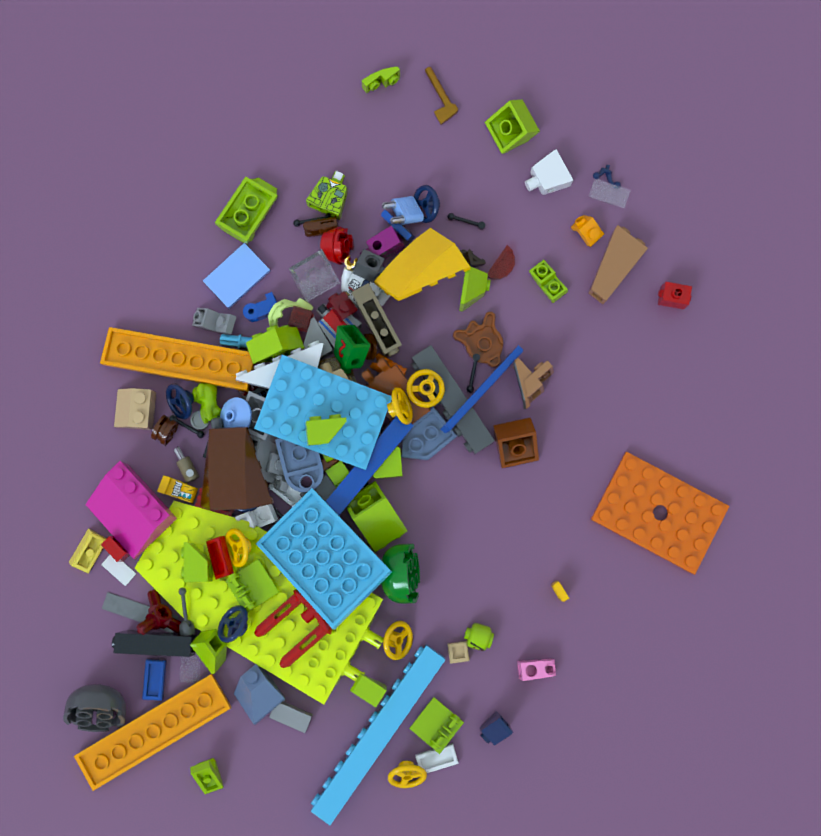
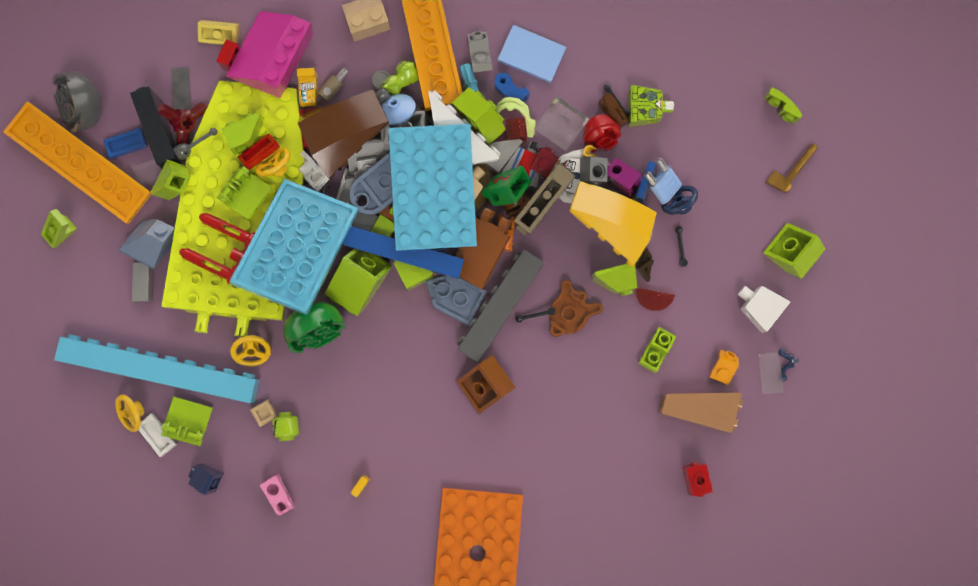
camera: 65 degrees right, 0 degrees up
(119, 570) = (212, 69): white sticker -> none
(164, 430) = (357, 51): reddish brown wheel -> none
(183, 400) = (391, 54): dark blue piece -> none
(200, 434) = (372, 55): black hinge -> none
(237, 625) = (200, 194): dark blue piece -> none
(247, 209) = (600, 35): lime slope -> none
(322, 431) = (412, 192): lime slope -> none
(369, 689) = (192, 342): lime slope -> none
(400, 406) = (469, 256): yellow piece -> none
(429, 381) = (511, 275): yellow piece -> none
(481, 390) = (521, 329): blue tile -> none
(531, 383) = (547, 372): medium nougat piece -> none

